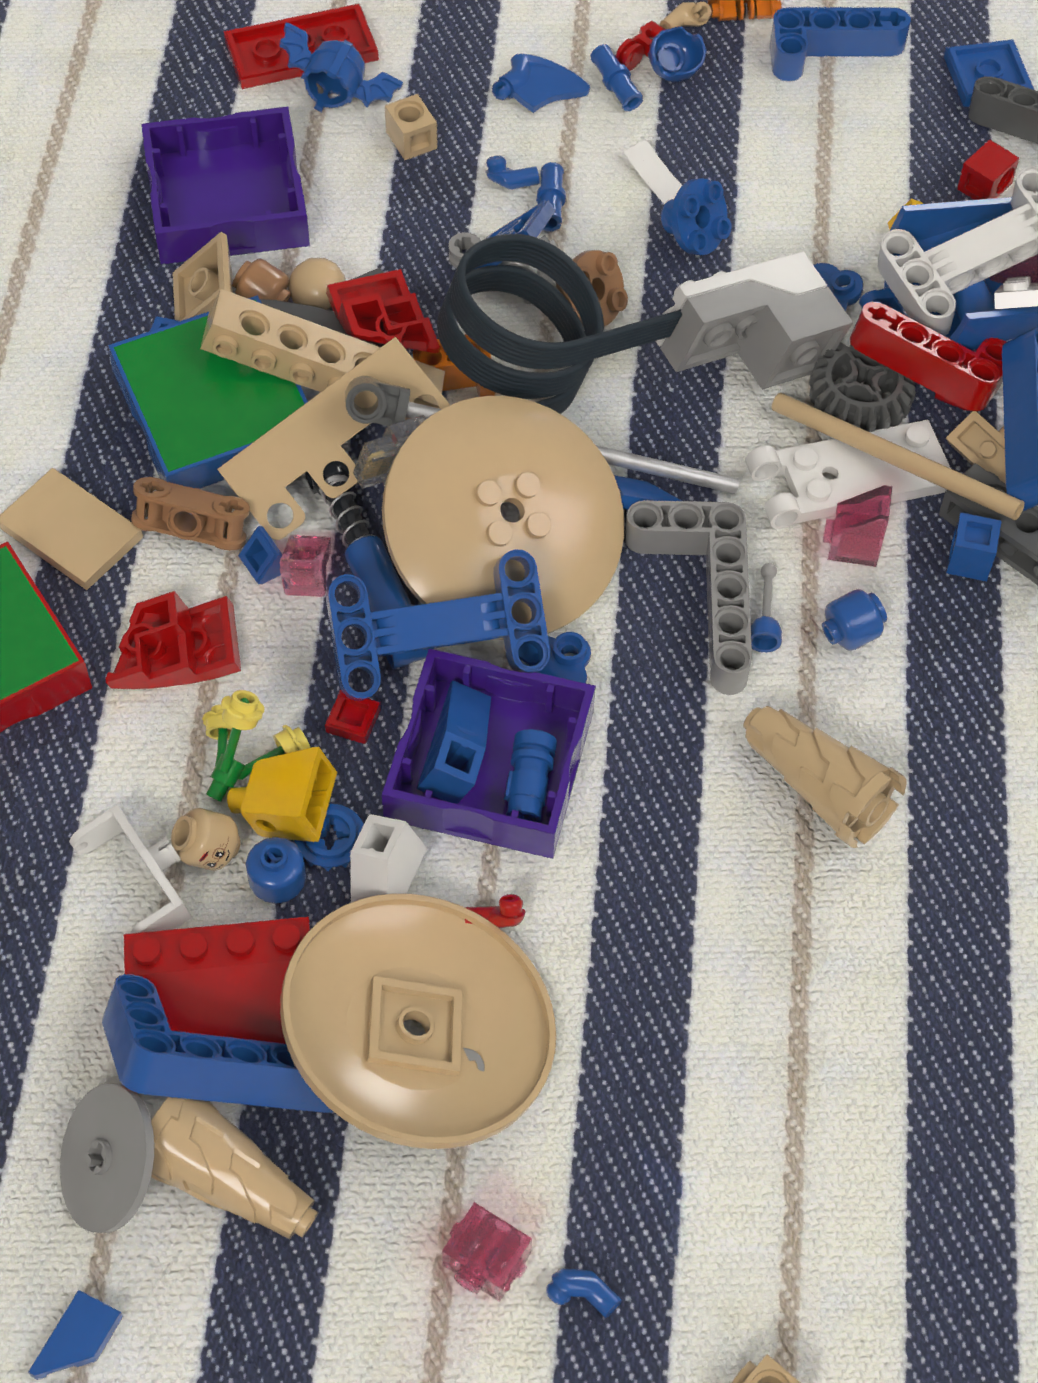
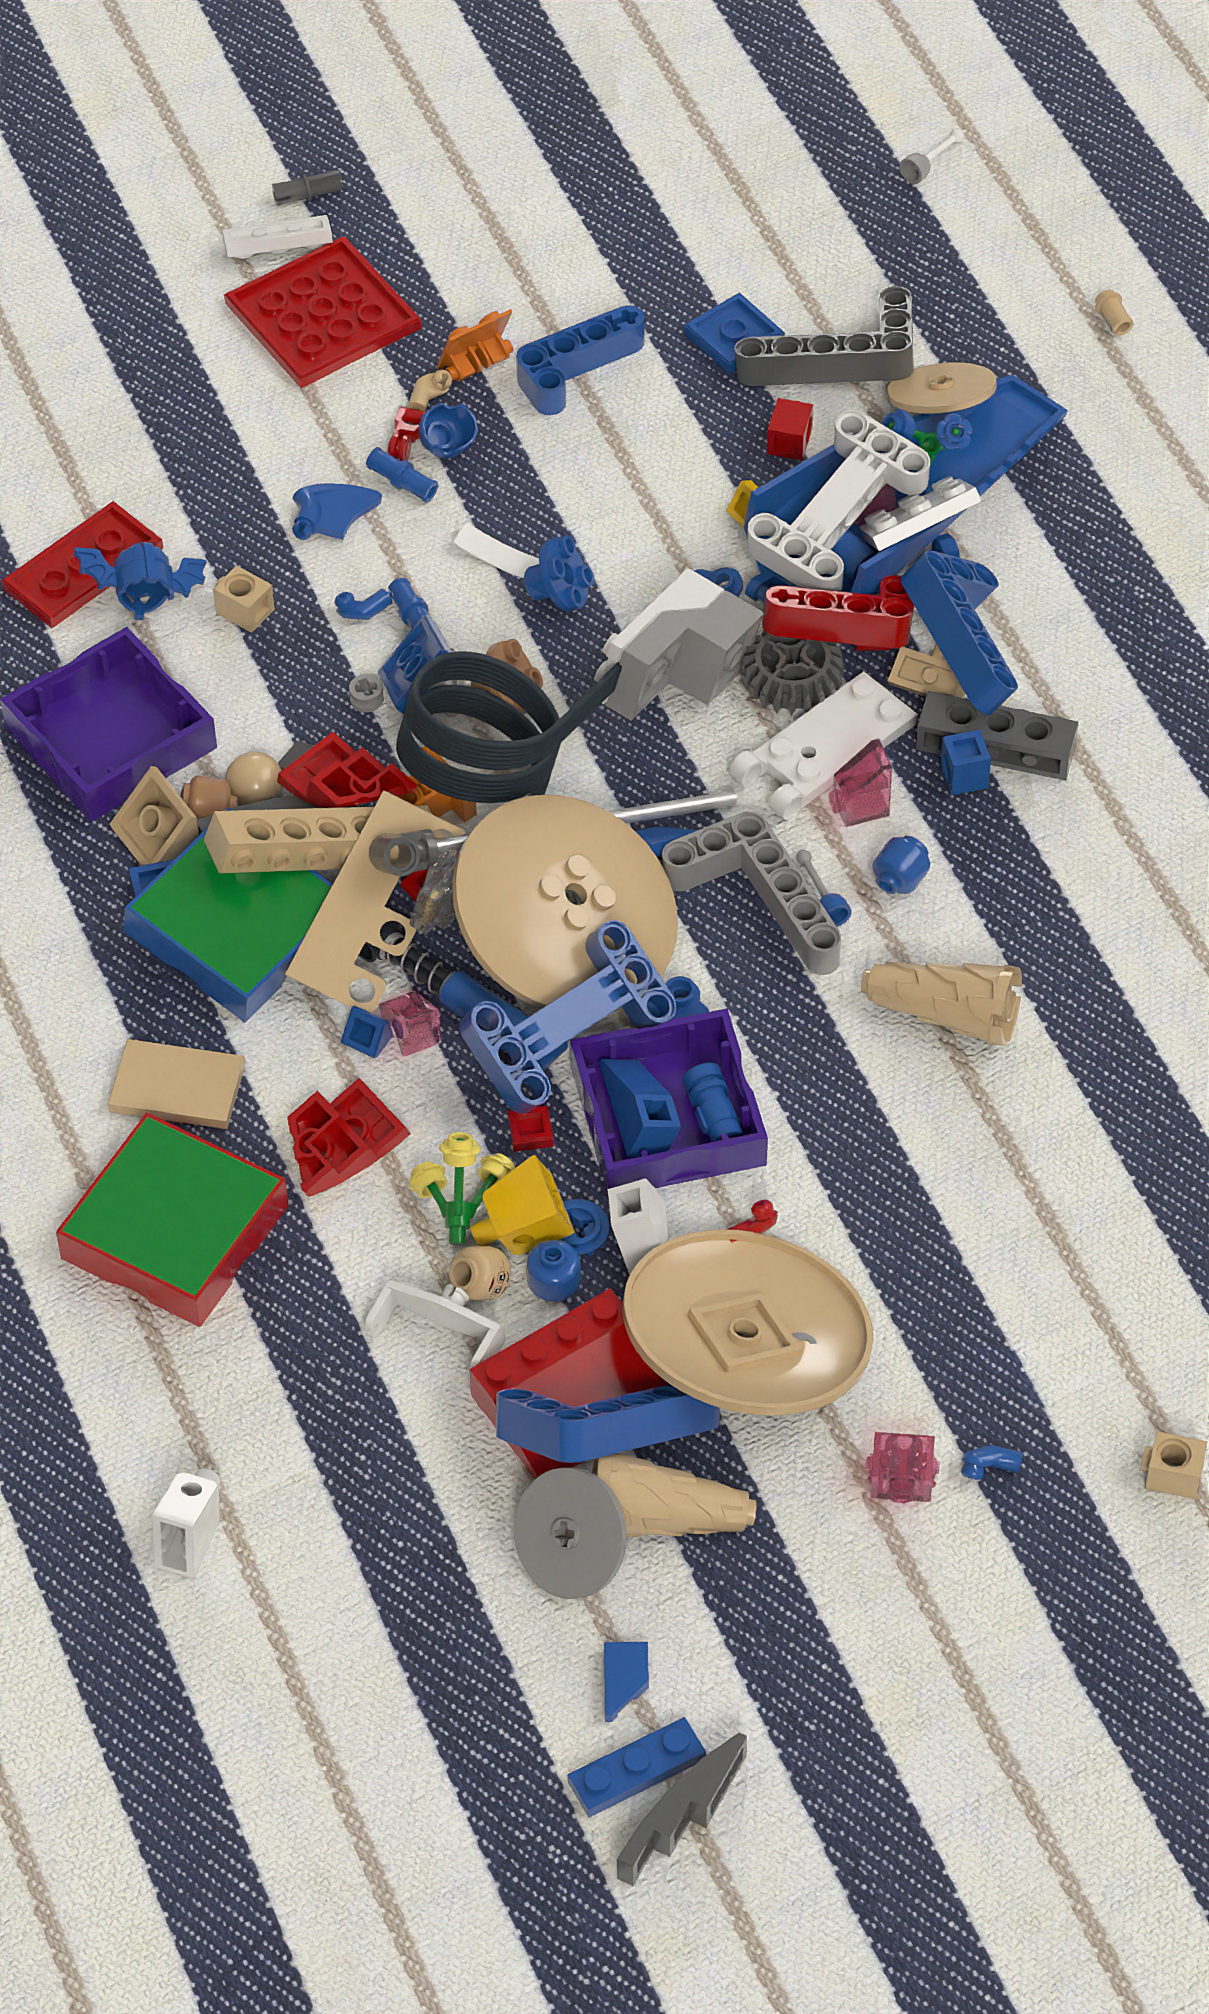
camera: 25 degrees left, 5 degrees down
(170, 509) = (261, 1021): medium nougat piece -> none
(899, 456) = (858, 712): tan piece -> none

